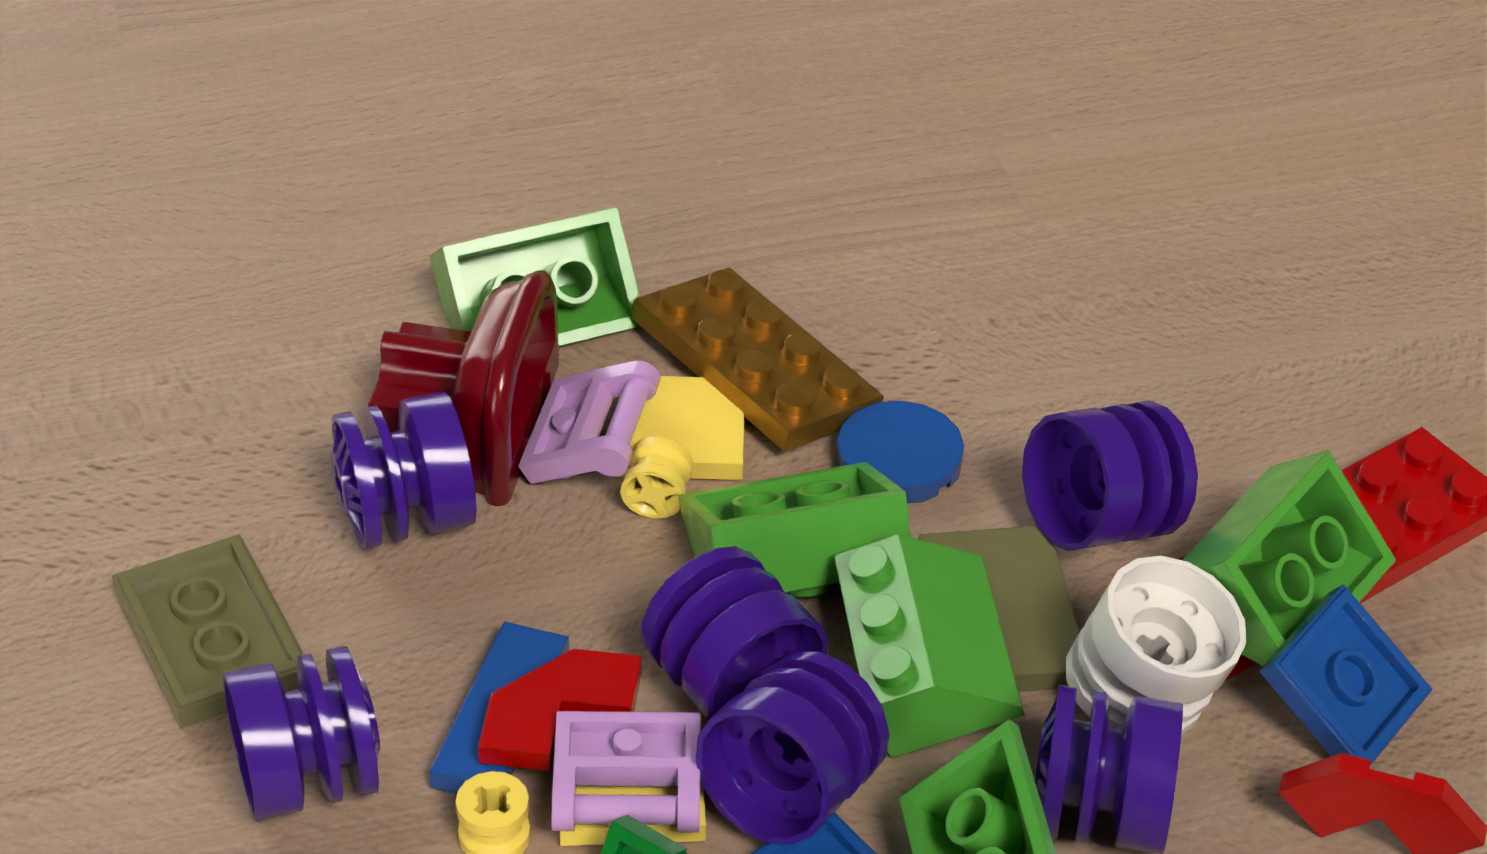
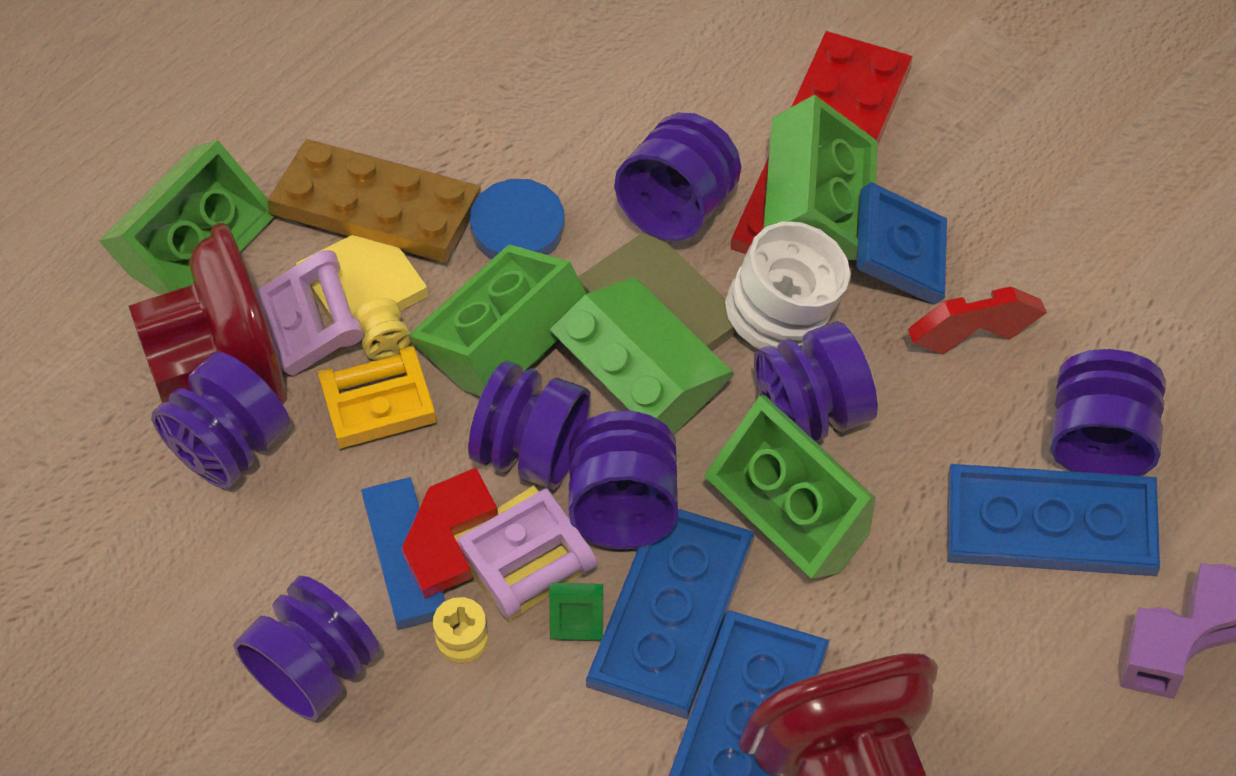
camera: 30 degrees left, 15 degrees up
(206, 618) = (166, 603): olive tile -> none
(597, 544) = (381, 407): none -> yellow plate

